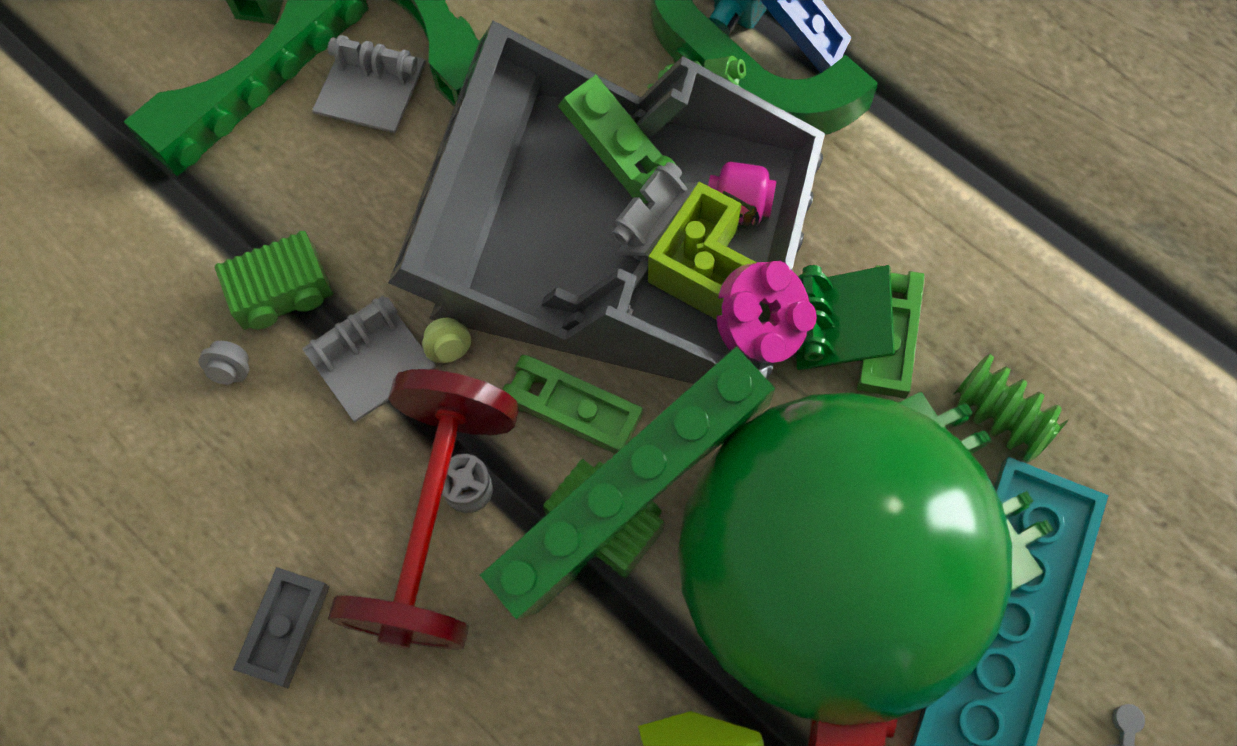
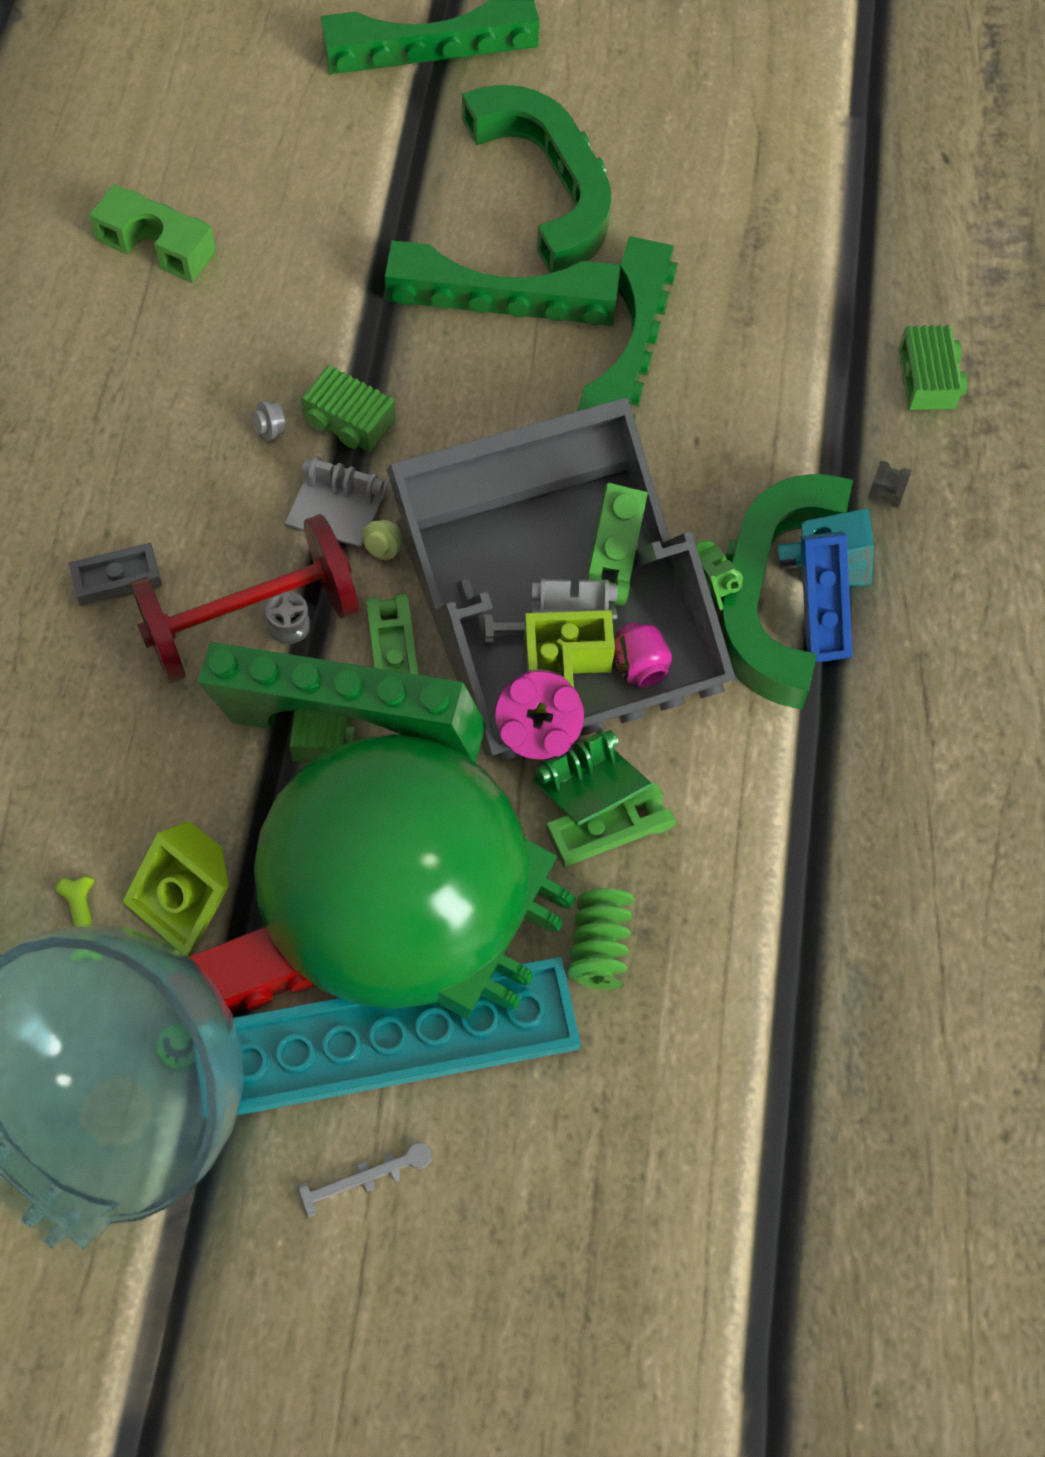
camera: 50 degrees right, 5 degrees down
(368, 84) = (546, 364): light grey hinge -> none

